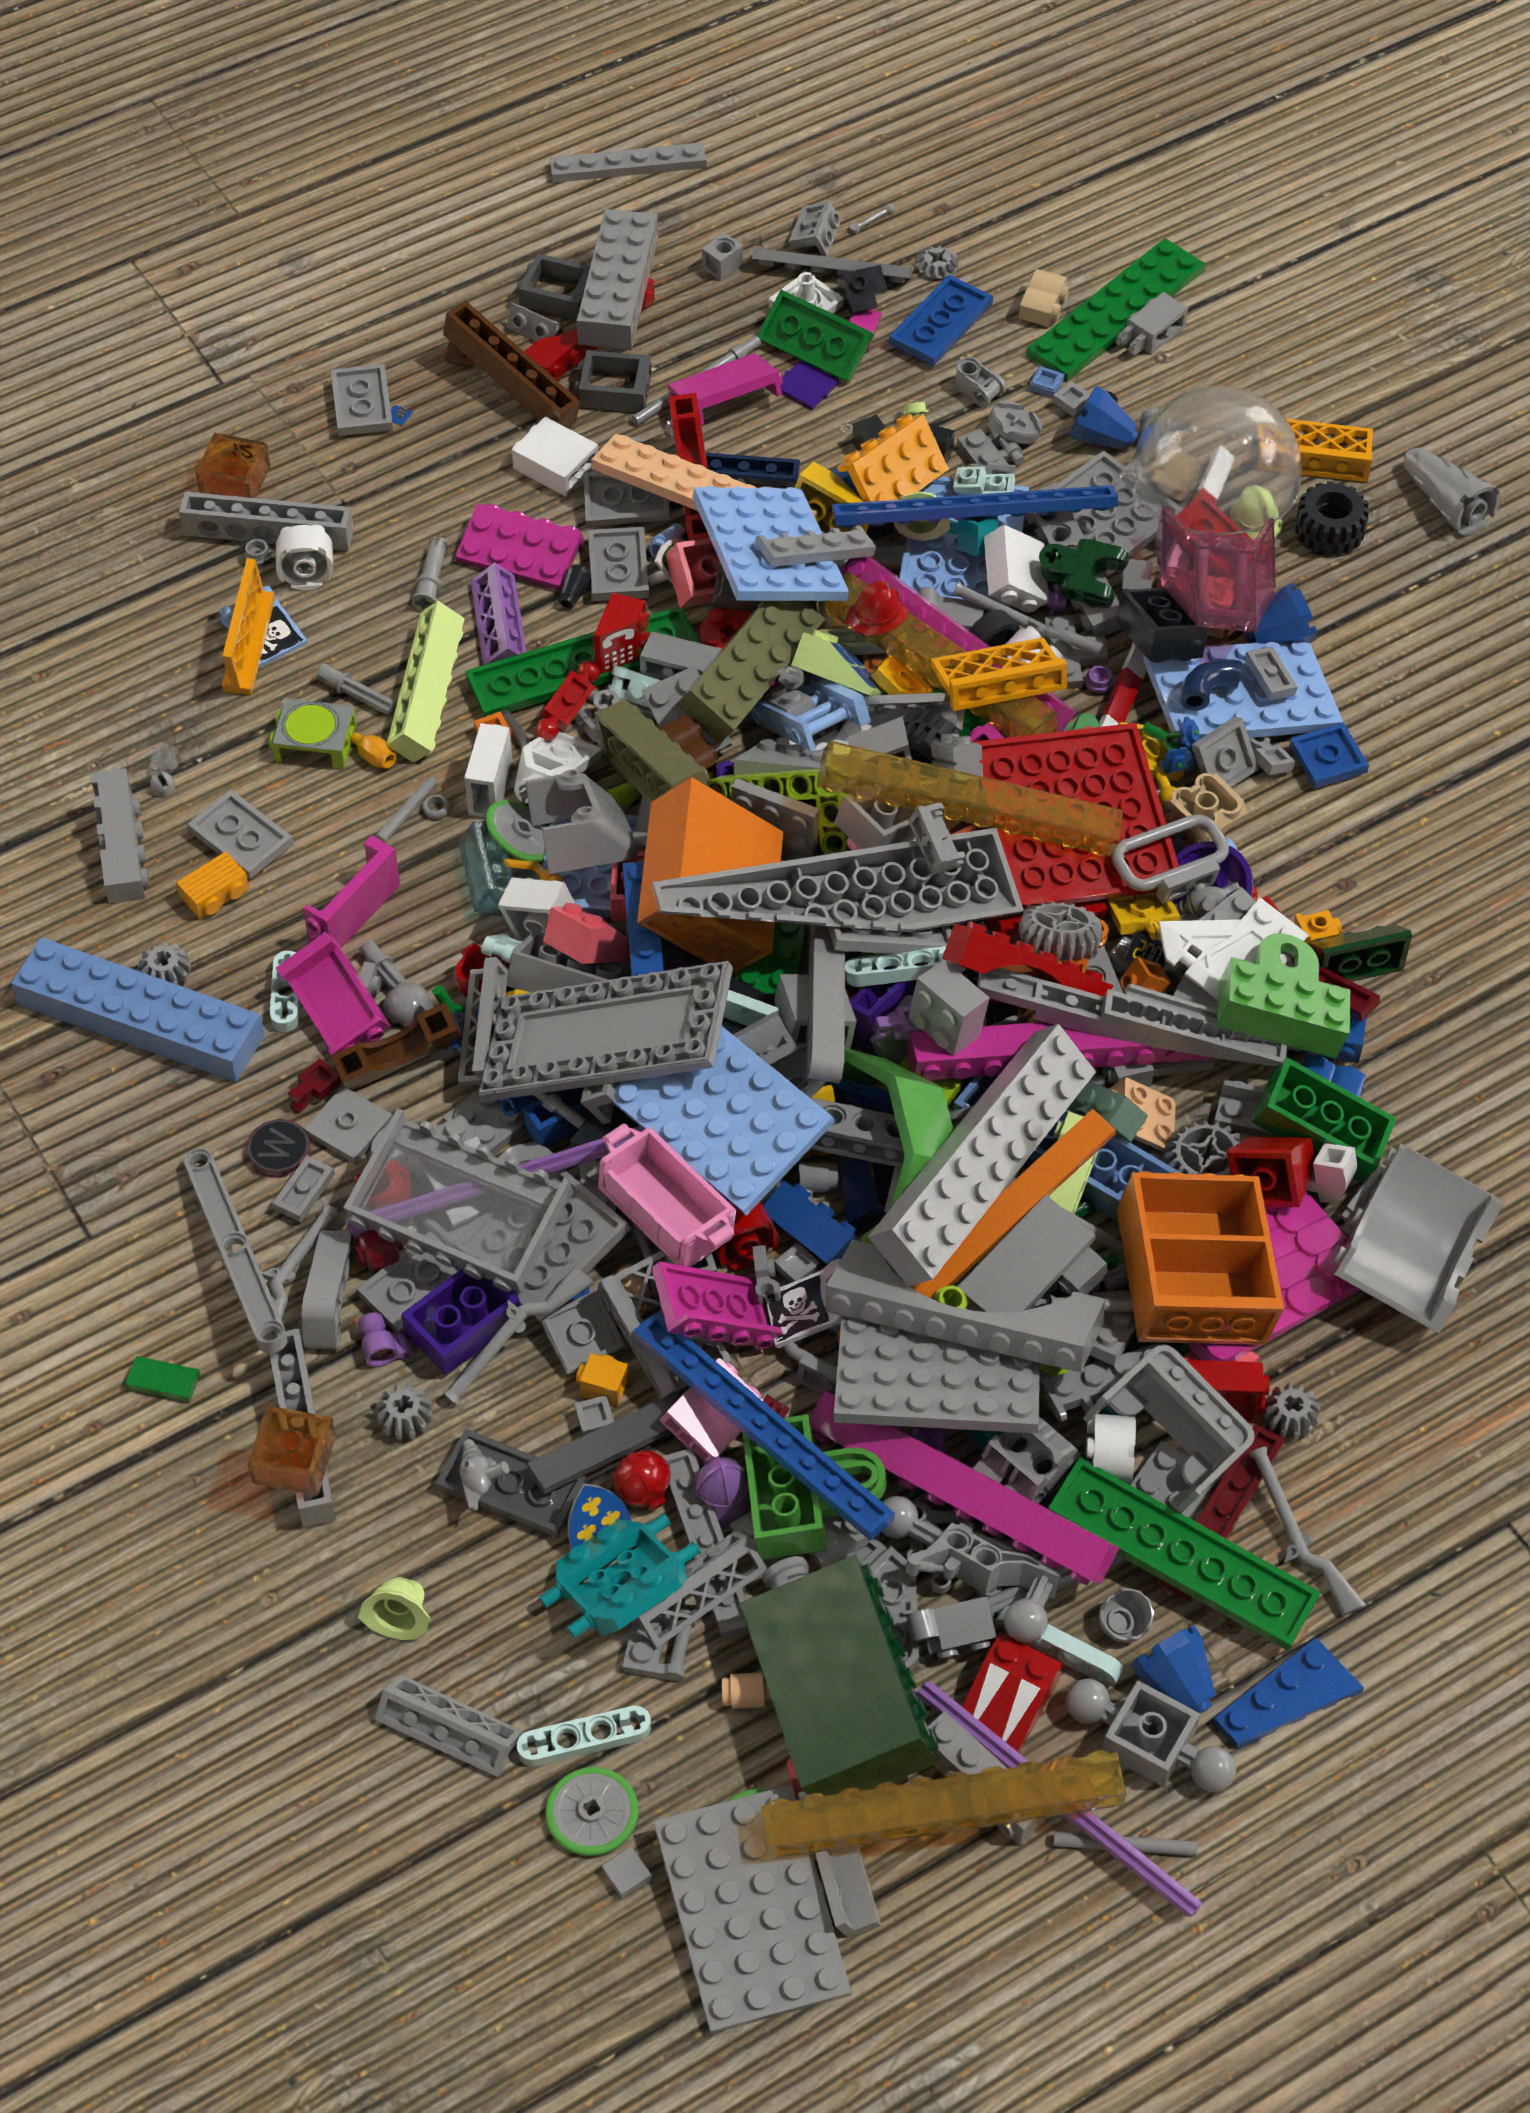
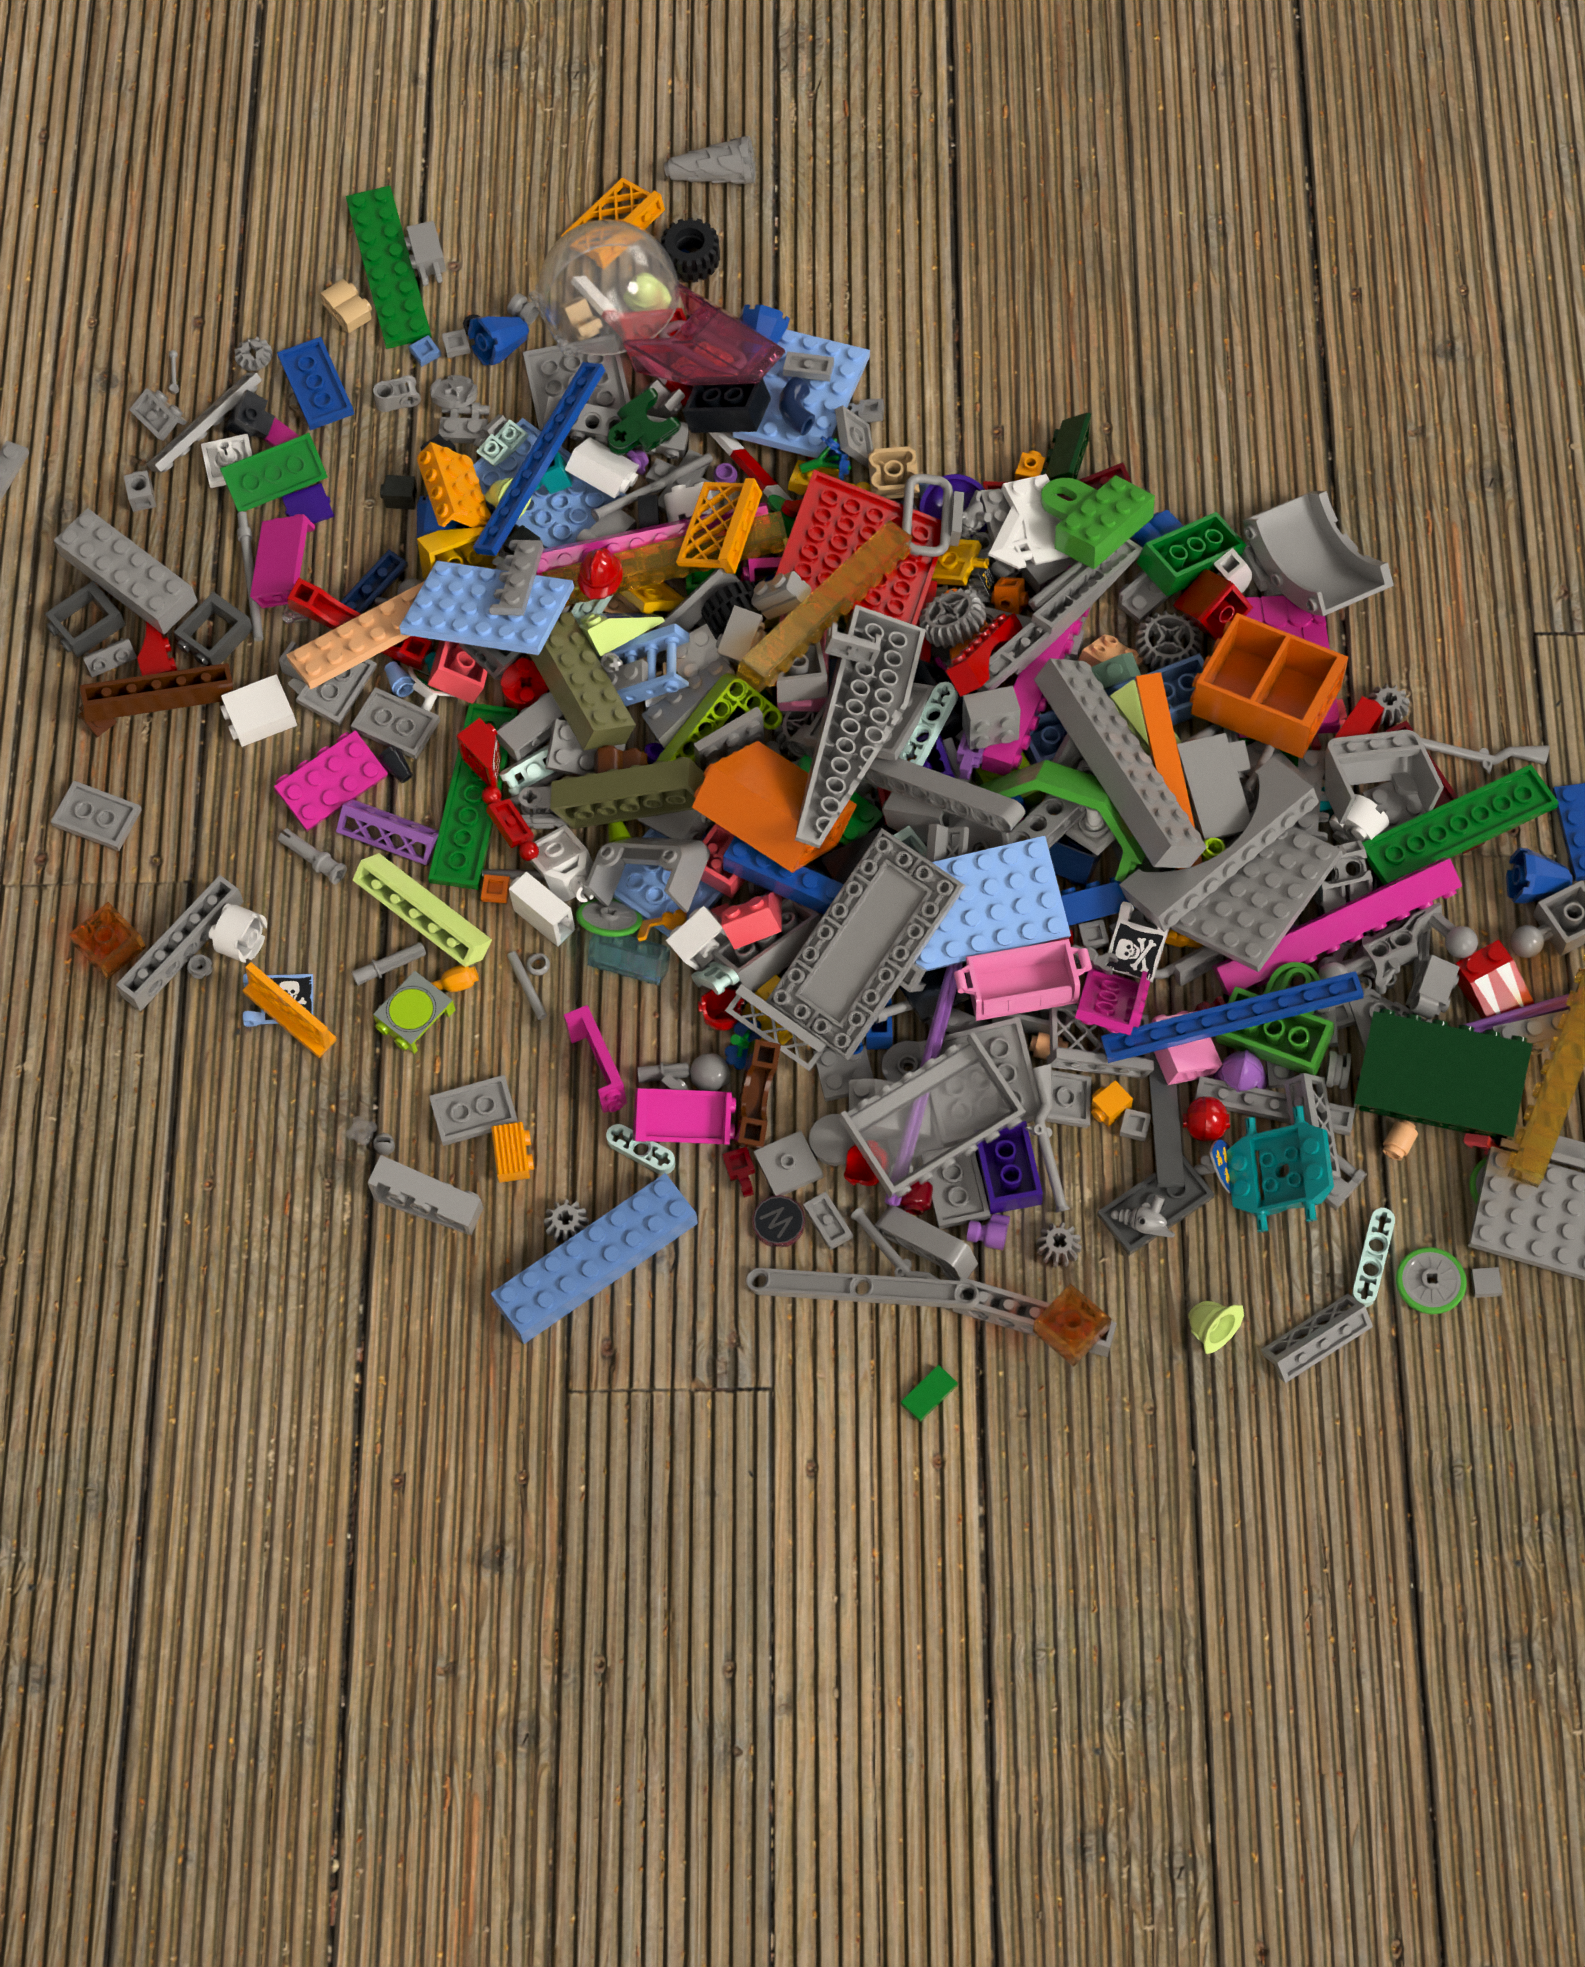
camera: 55 degrees left, 10 degrees up
(400, 414) = (128, 794): blue sticker -> none
(915, 409) = (392, 449): yellowish green plate -> none
(1073, 1653) = (1485, 931): light aqua beam -> none
(1126, 1615) = (1479, 885): light grey hair -> none
(1329, 755) = (889, 375): blue plate -> none

